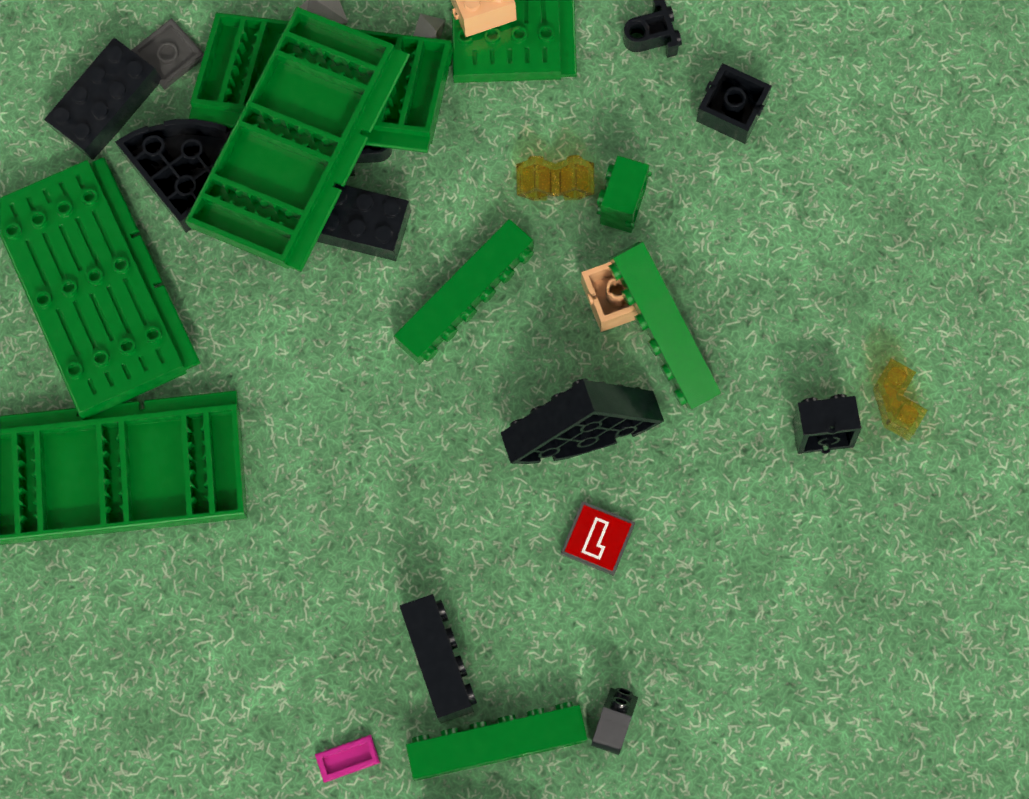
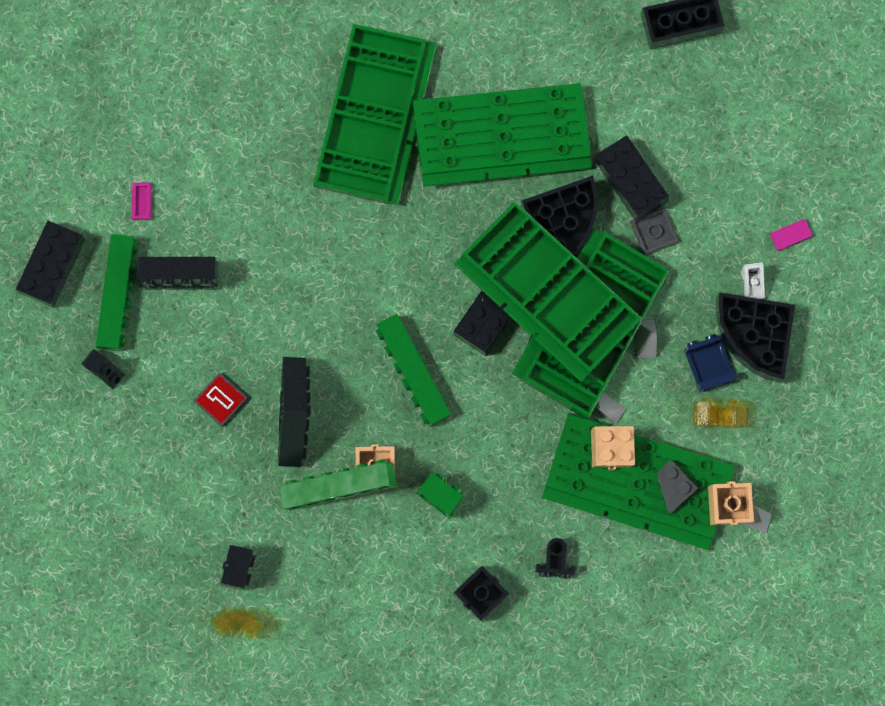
camera: 100 degrees right, 5 degrees up
(542, 178) = (470, 454): clear yellow brick -> none

